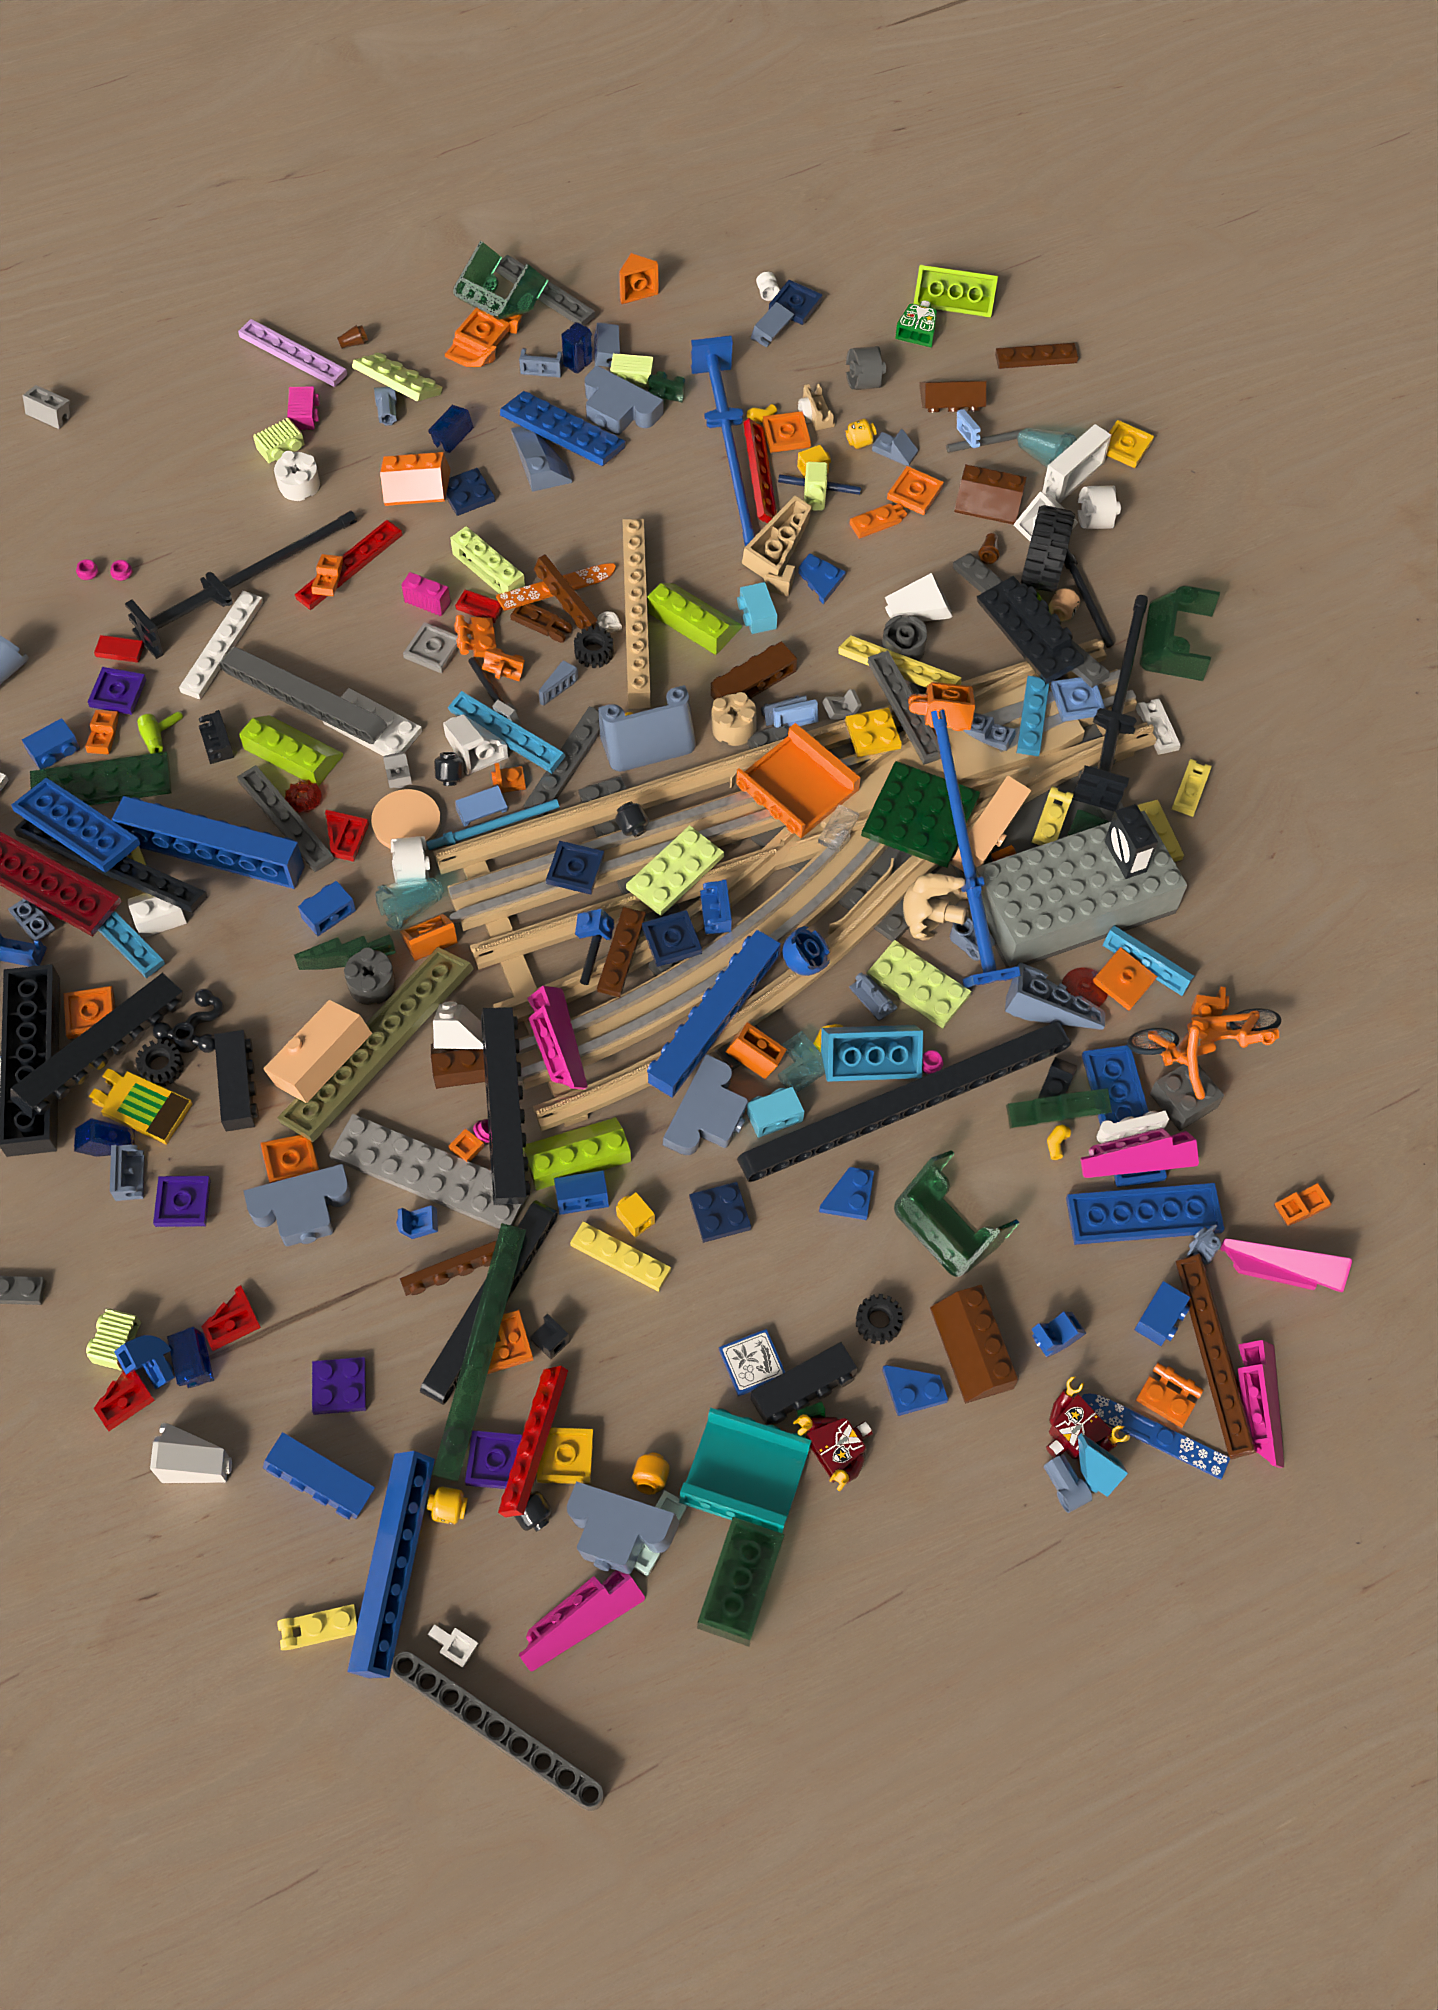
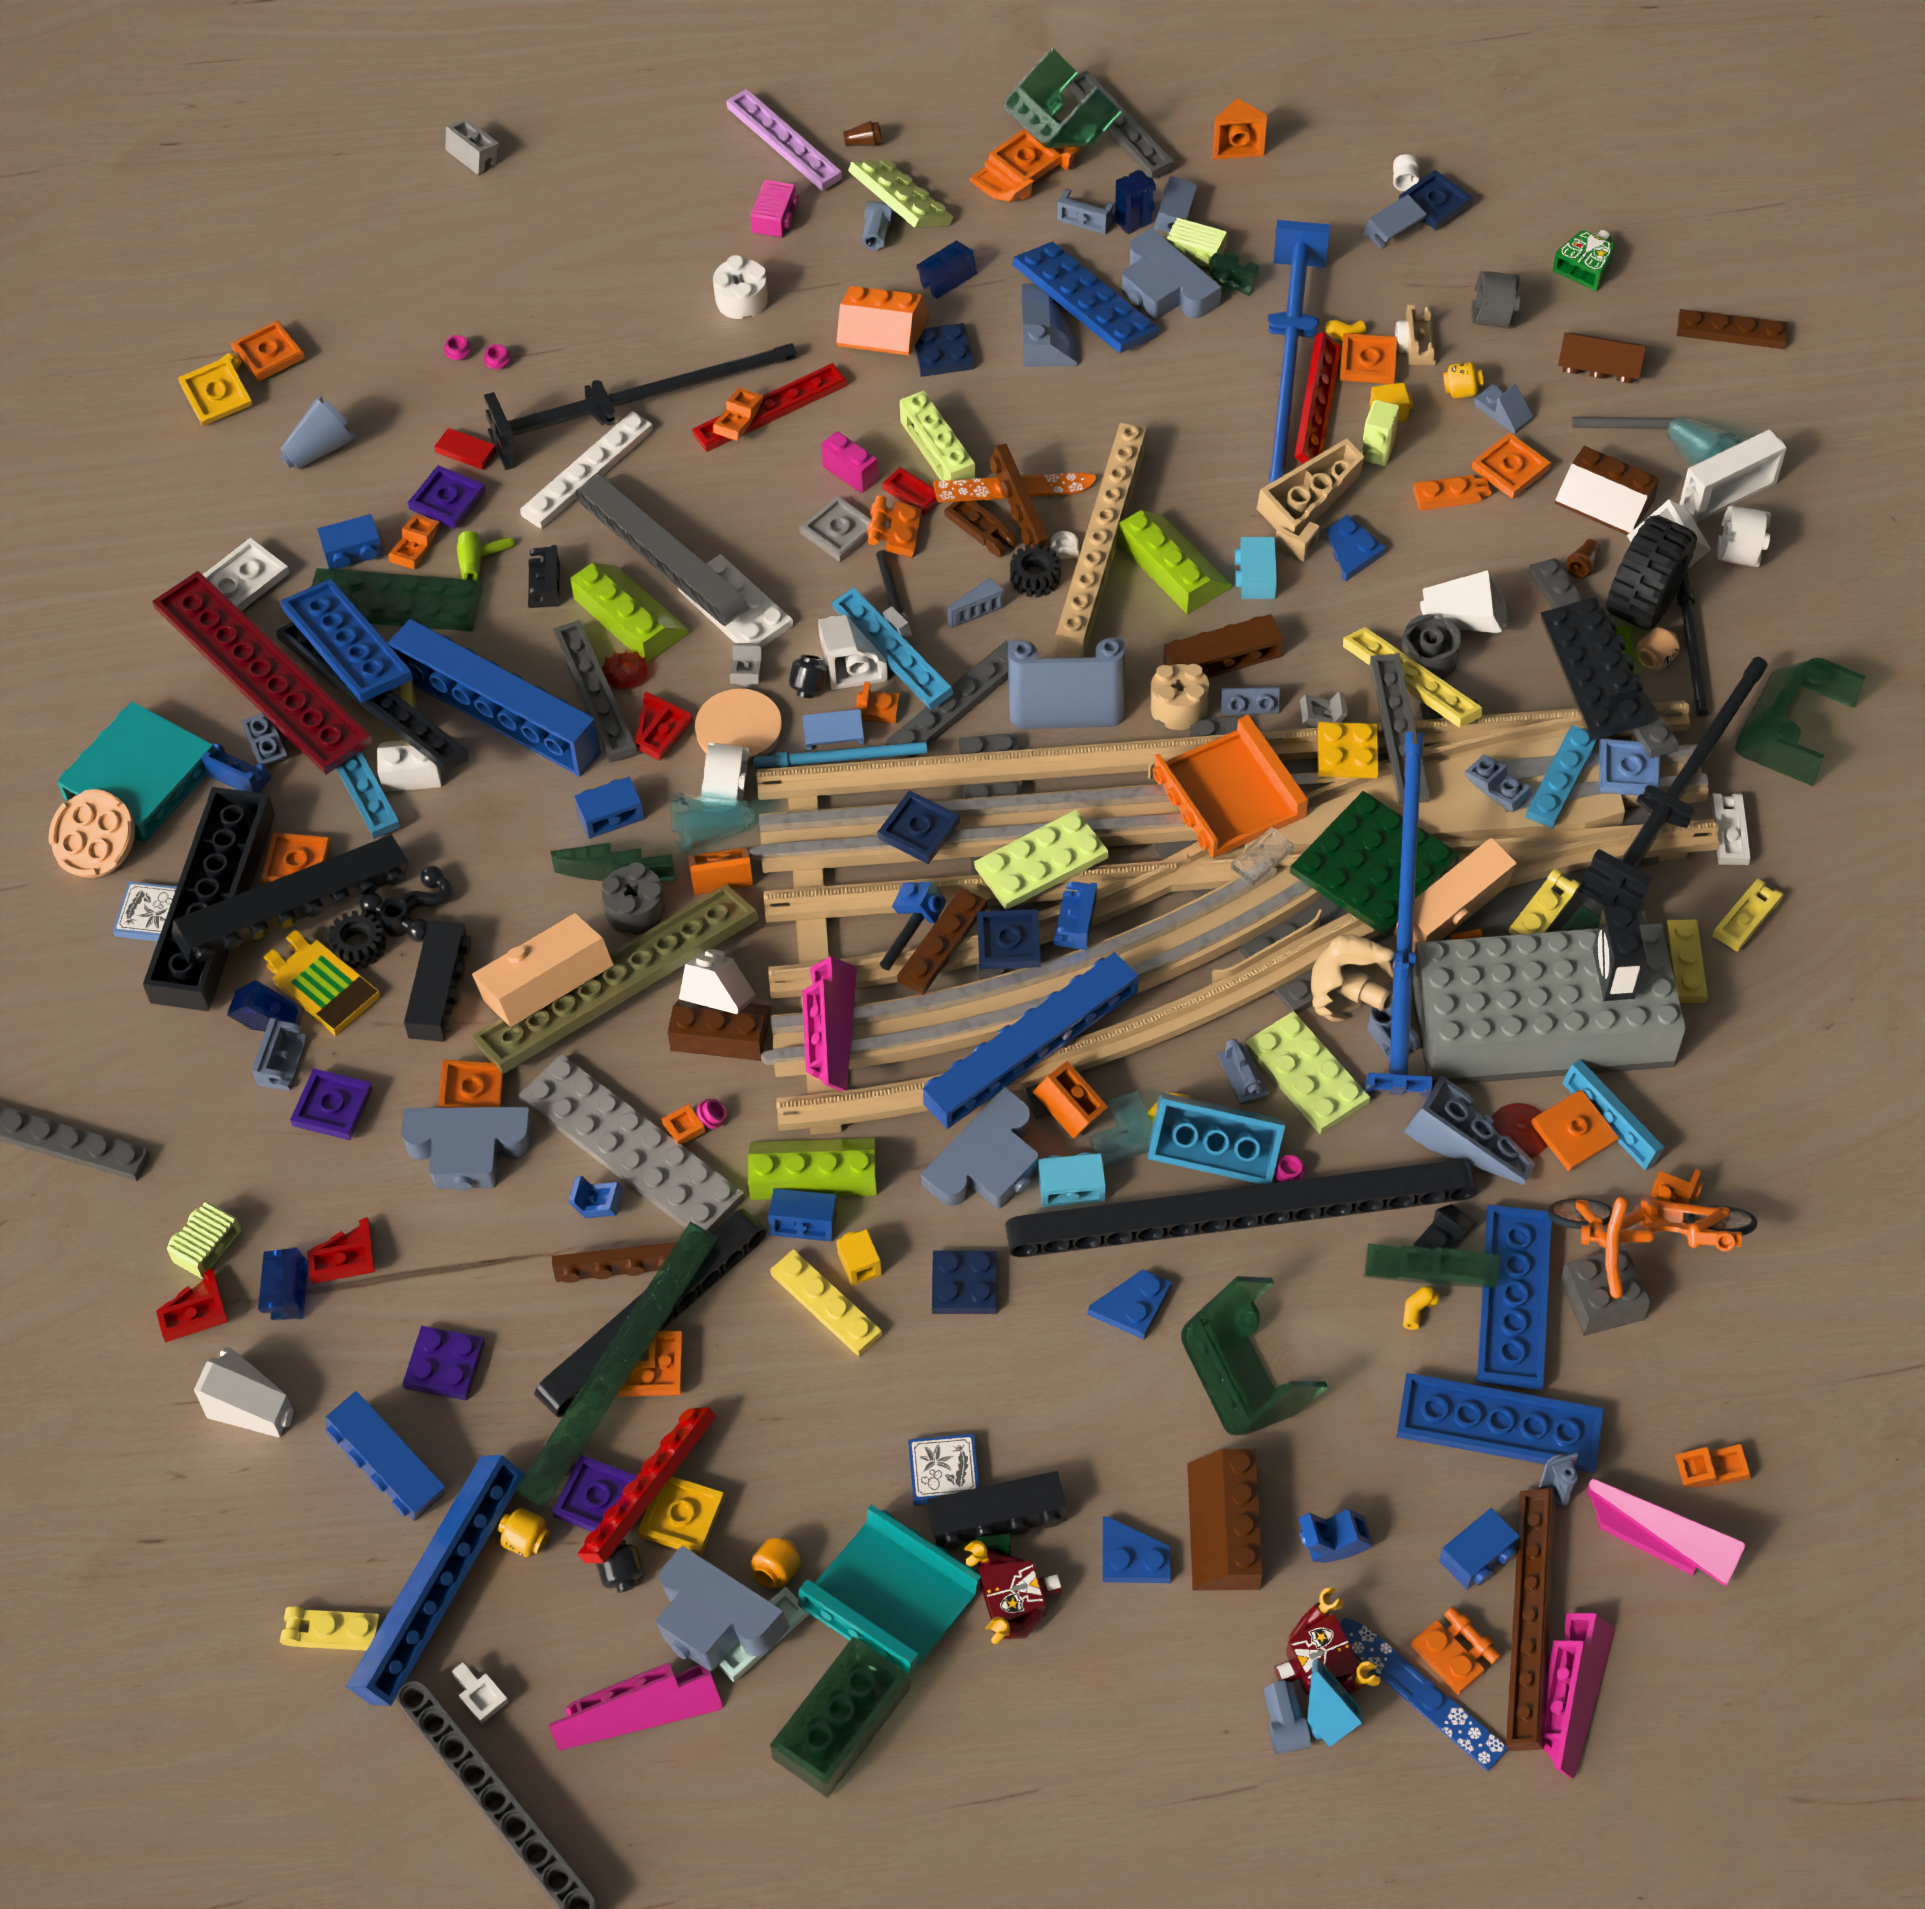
camera: 20 degrees right, 5 degrees down
(149, 1353) = (236, 1264): blue brick -> none
(278, 439) = (732, 239): yellowish green brick -> none
(503, 664) = (916, 567): orange hips -> none
(503, 1106) = (737, 1087): black brick -> none
(550, 1337) = (709, 1374): black panel -> none
(632, 819) = (1007, 785): black head -> none
(798, 713) = (1262, 707): light blue tile -> none
(805, 952) = (1167, 993): blue cylinder -> none
(839, 487) = (1401, 436): dark blue bar -> none
(879, 1304) = (1117, 1477): black tyre -> none
(954, 699) = (1449, 736): orange hinge -> none
(956, 290) = (1651, 226): lime slope -> none
(968, 428) = (1605, 402): light blue tile -> none
(1128, 443) = (1814, 464): yellow plate -> none
(1131, 1126) = (1515, 1311): white plate -> none
(1141, 1153) = (1518, 1347): dark pink wedge -> none

